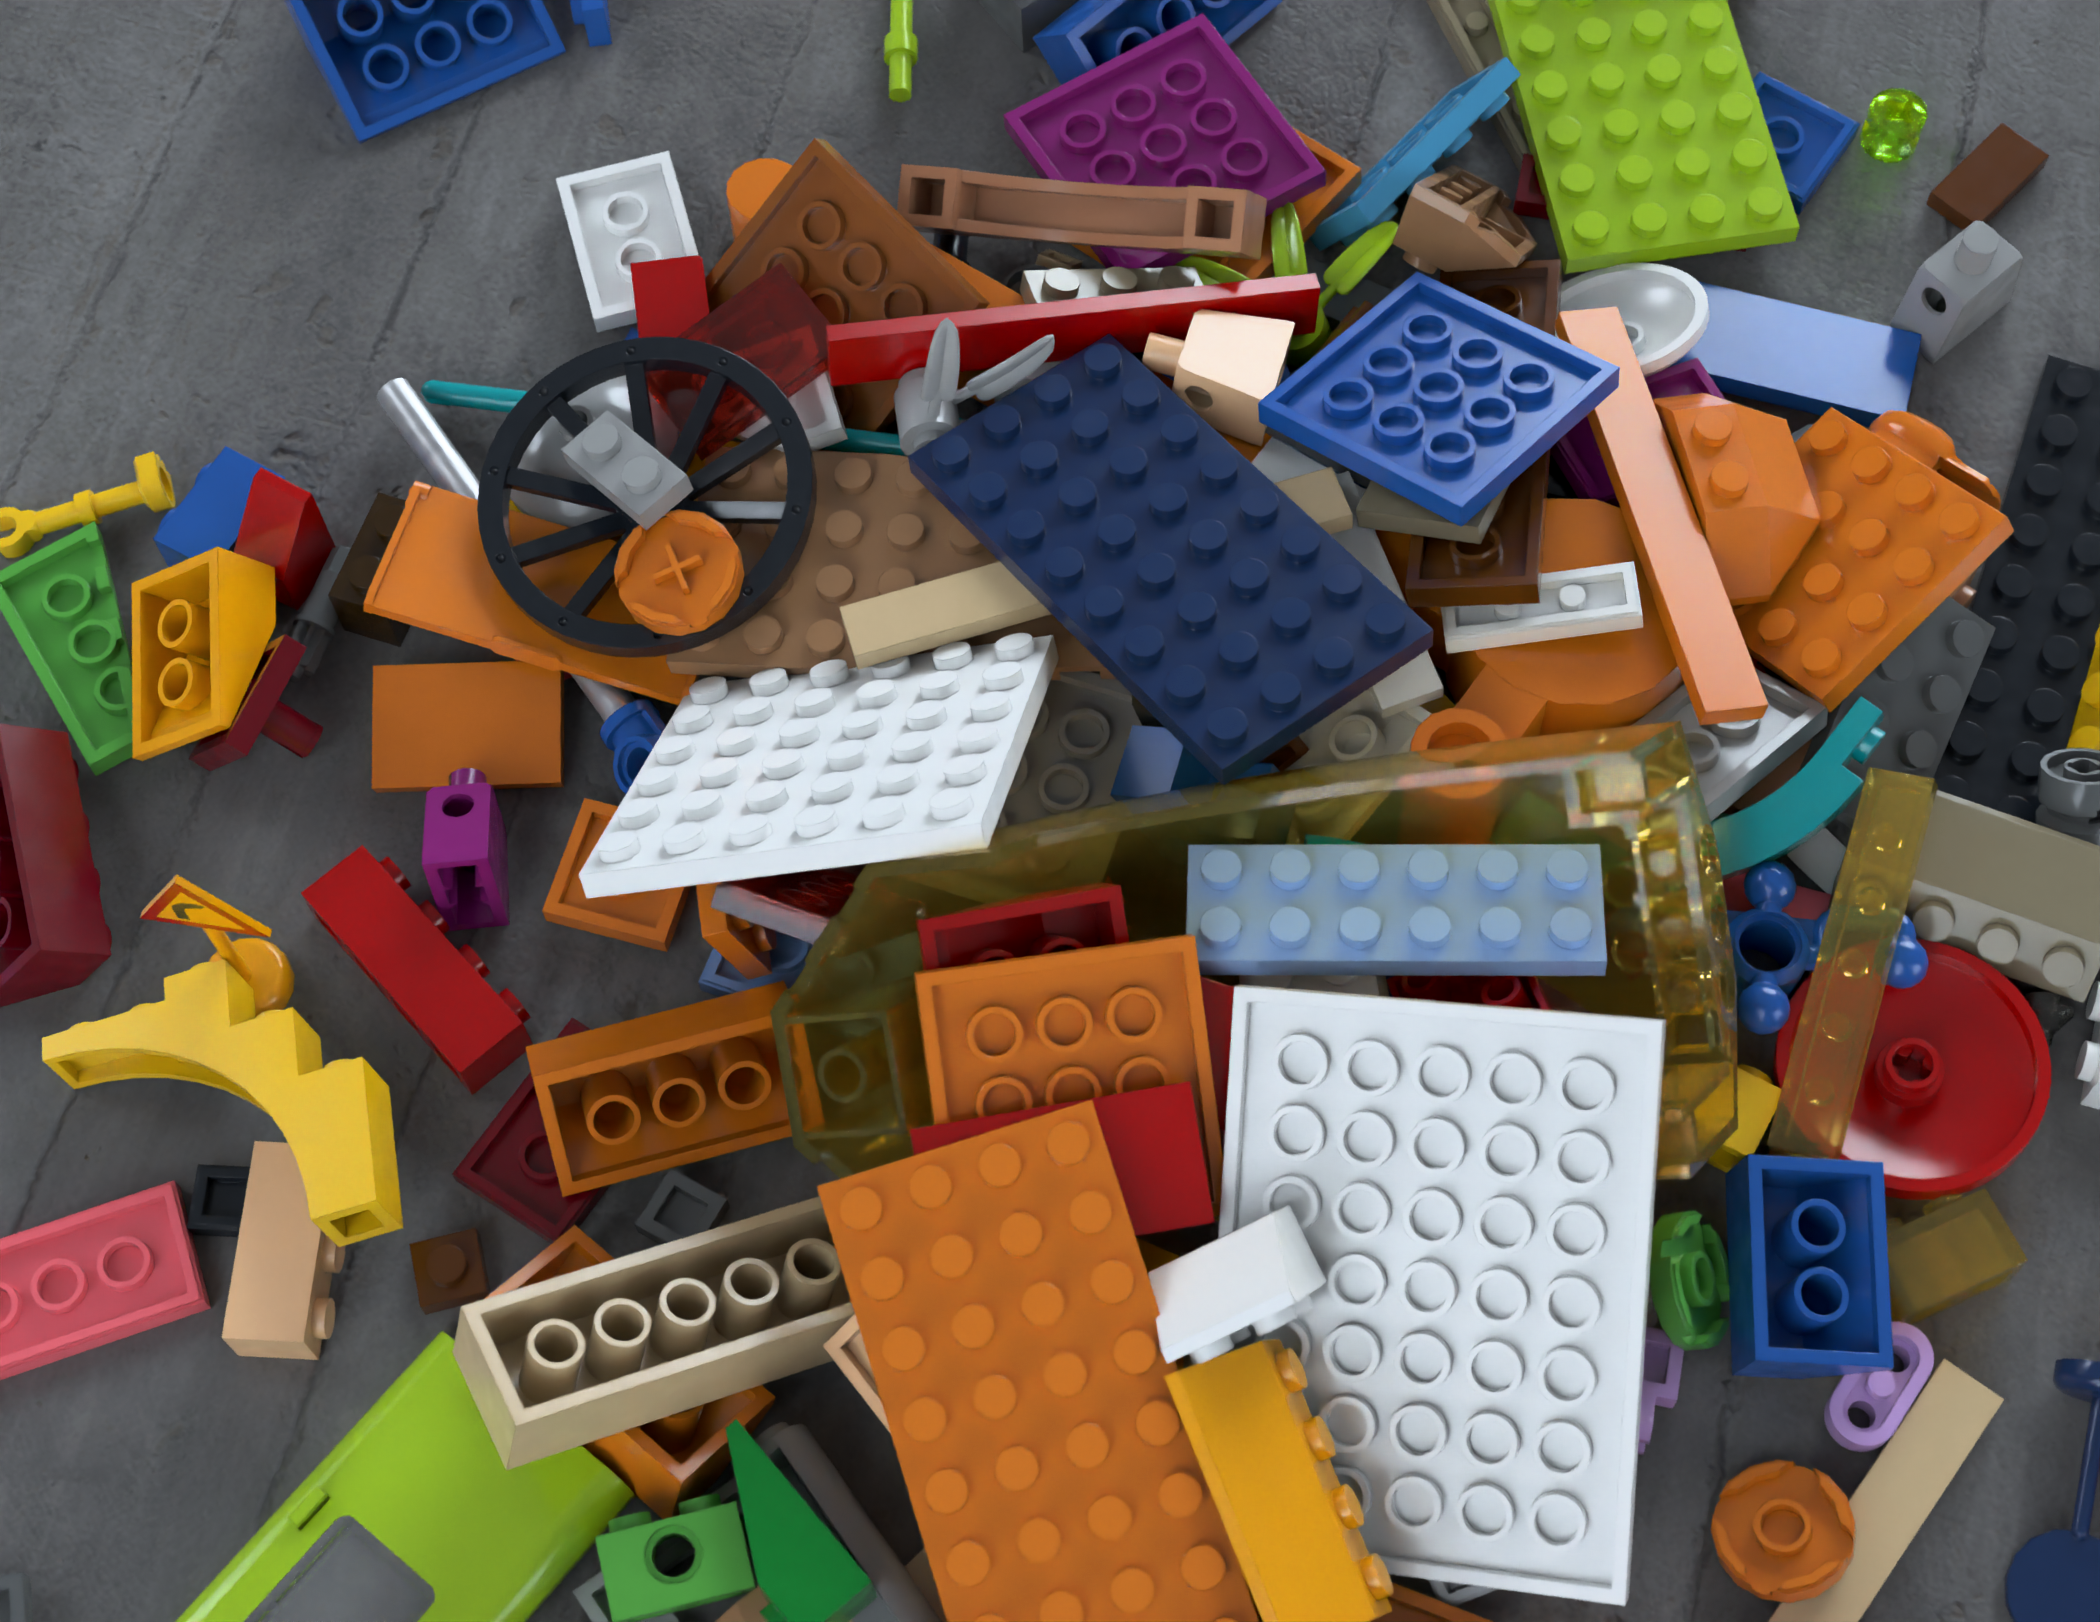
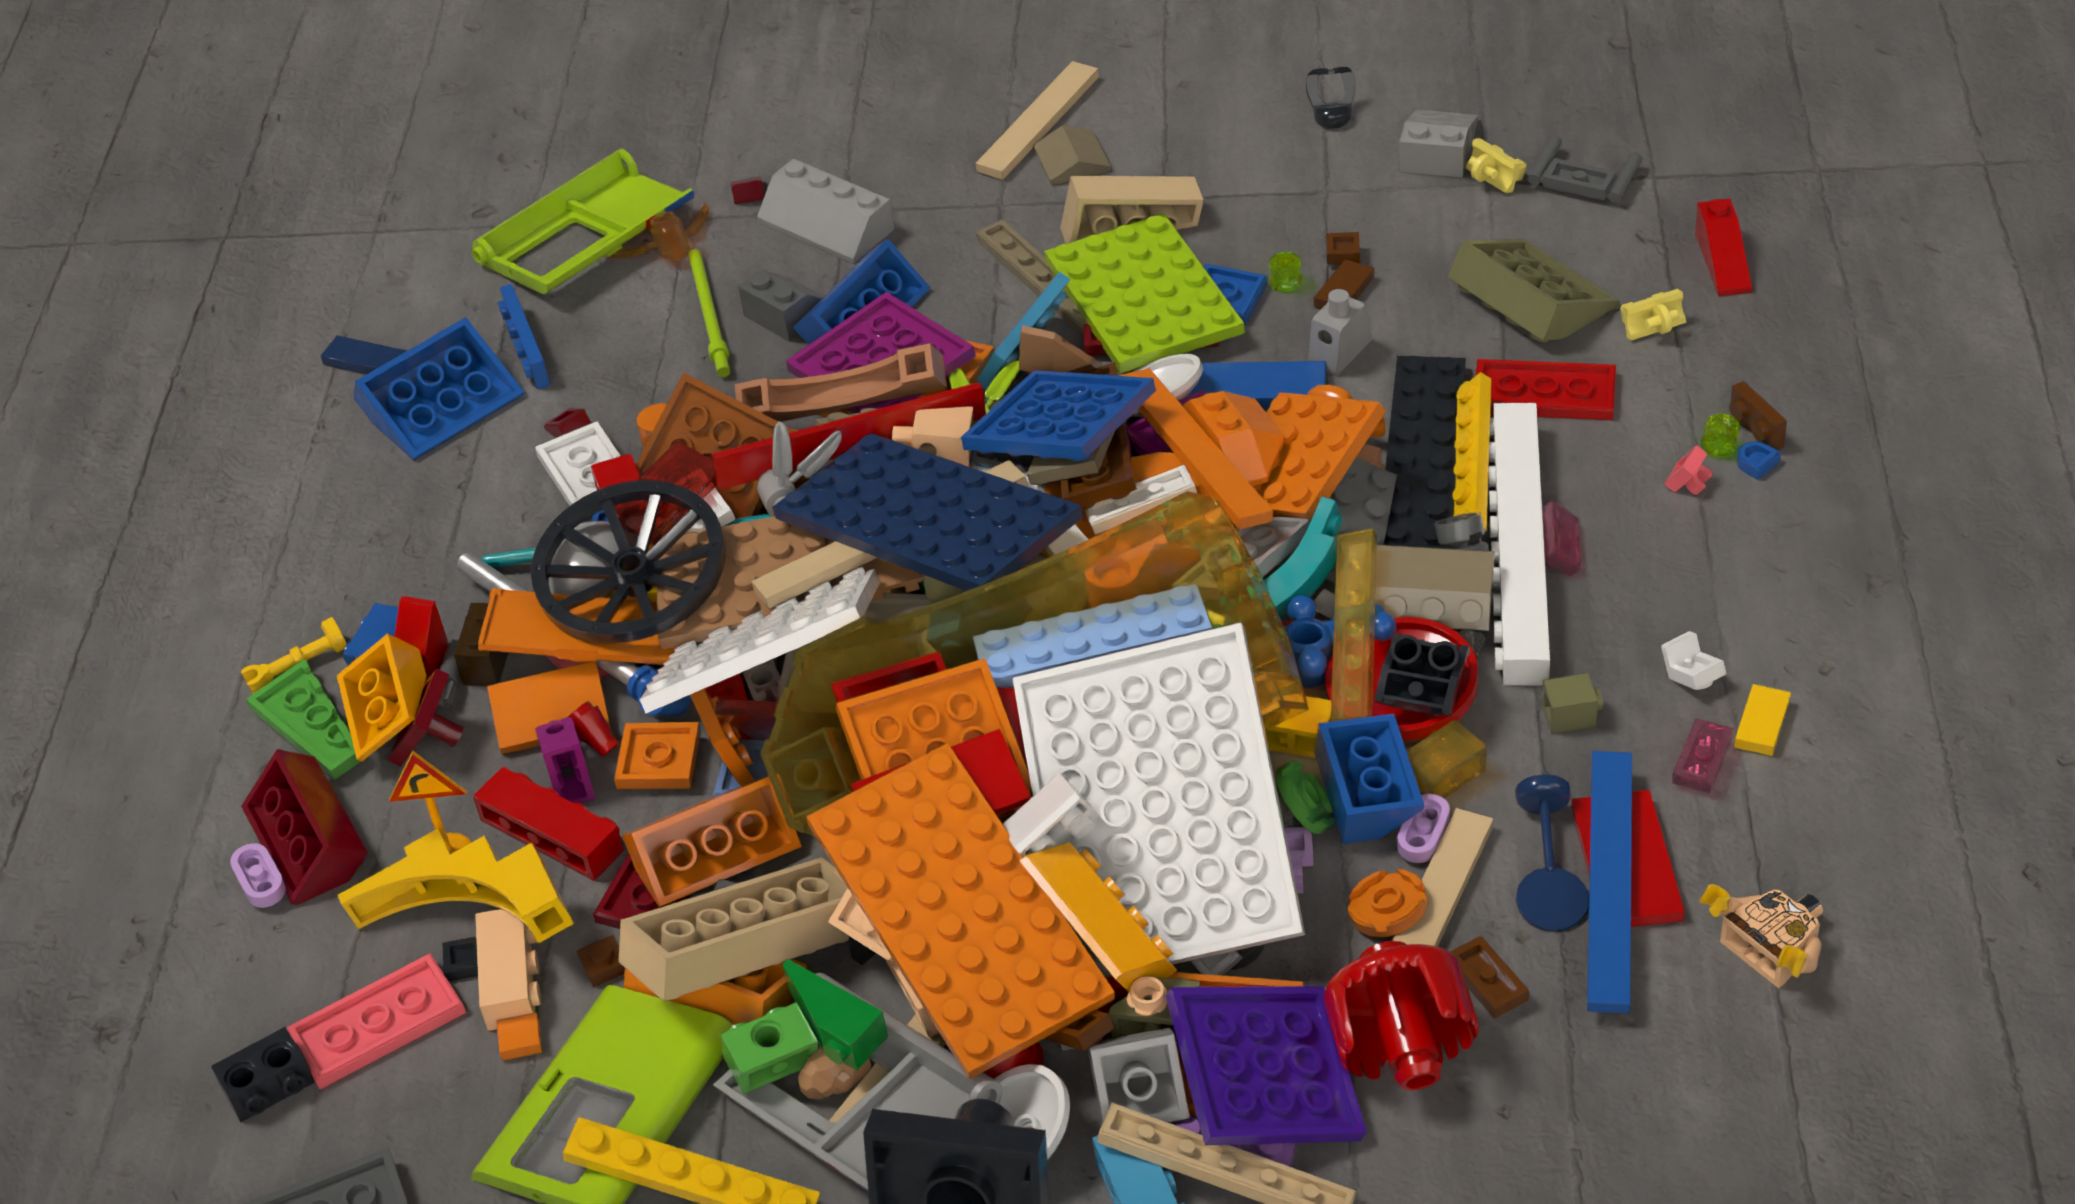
camera: 10 degrees left, 20 degrees down
(283, 1389) = (519, 1036): none -> orange tile
(528, 796) = (593, 728): none -> red cone
(623, 136) = (567, 422): none -> dark red slope
(627, 469) = (615, 543): light grey plate -> none
(679, 573) = (656, 587): orange tile -> none
(1951, 1096) = (1421, 675): none -> black slope
(2004, 97) = (1342, 246): none -> reddish brown plate

